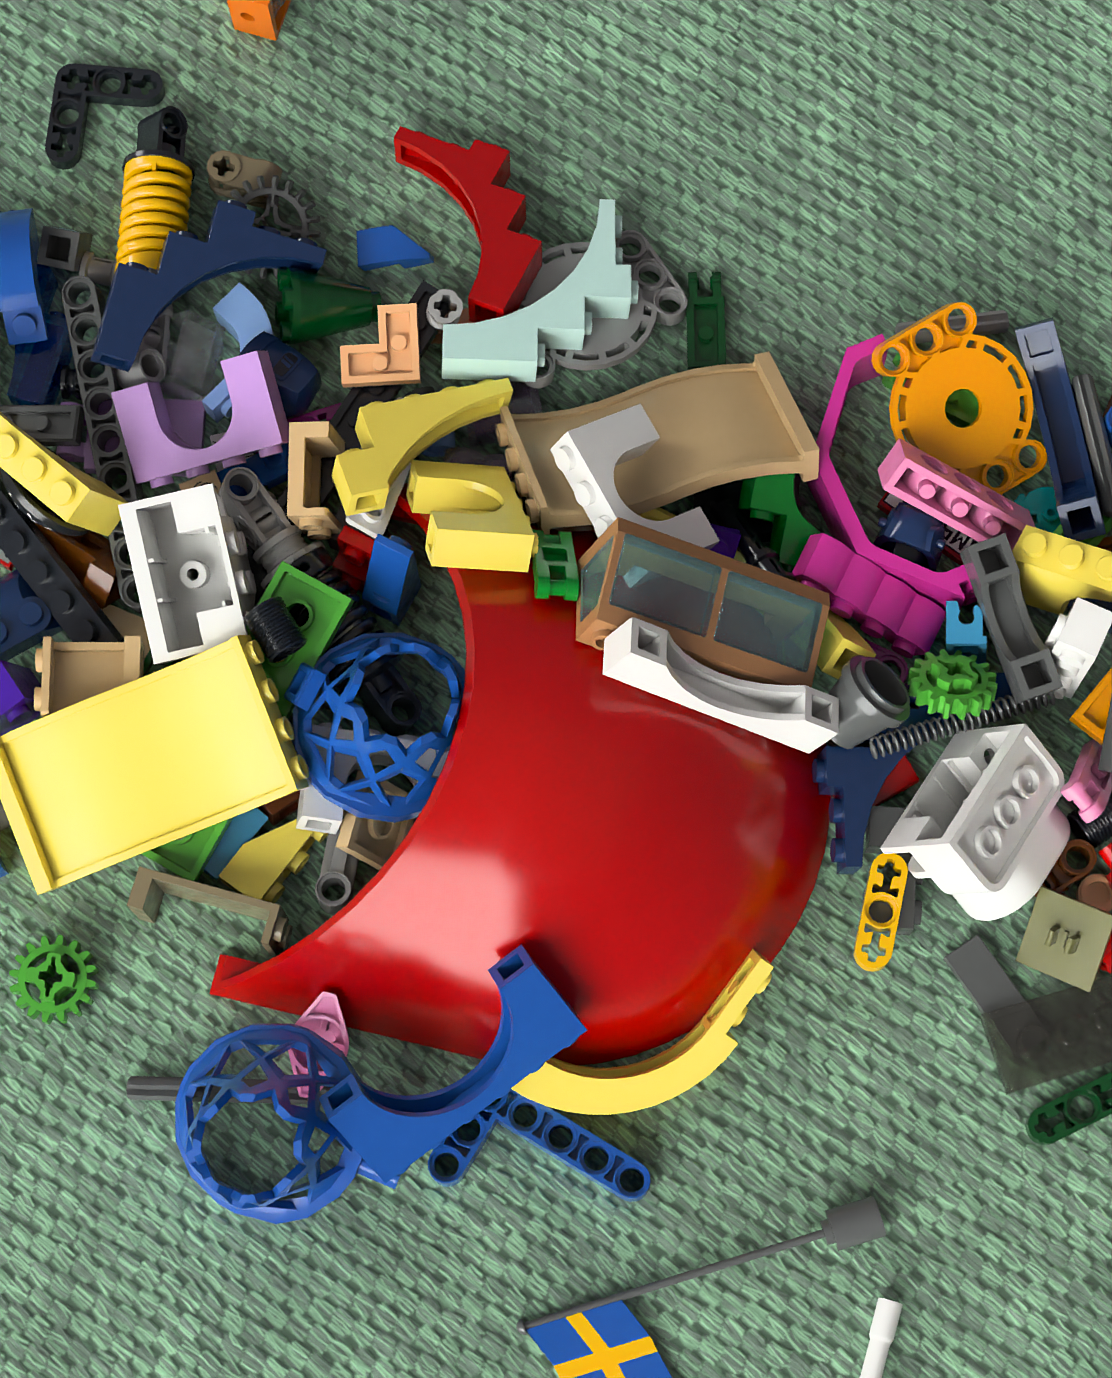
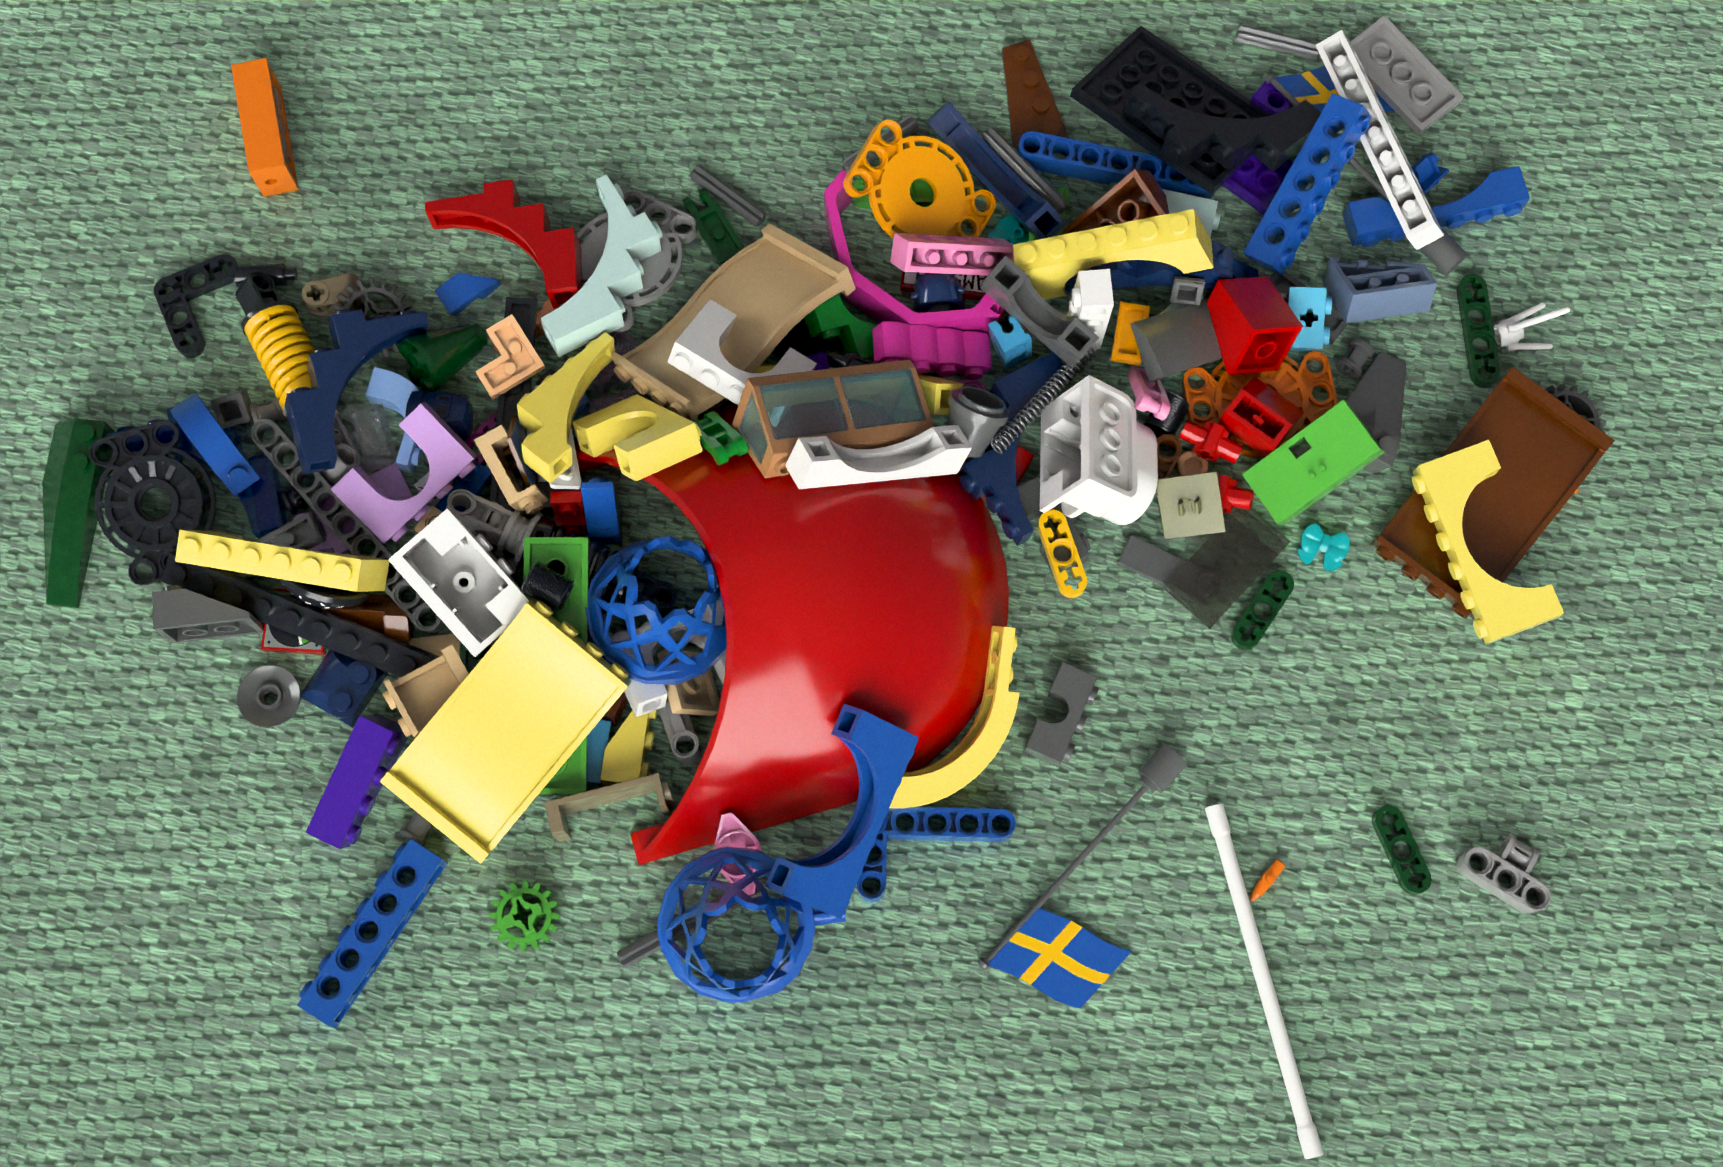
camera: 35 degrees left, 0 degrees up
(199, 122) = (277, 272): none -> black cylinder
(305, 686) = (590, 614): blue tile -> none
(337, 443) = (515, 439): none -> piece
(454, 304) = (537, 300): light grey bush -> none
(743, 294) = (728, 195): none -> dark grey axle
(806, 1077) = (1073, 690): none -> dark grey arch
(952, 684) = (1024, 377): bright green gear -> none

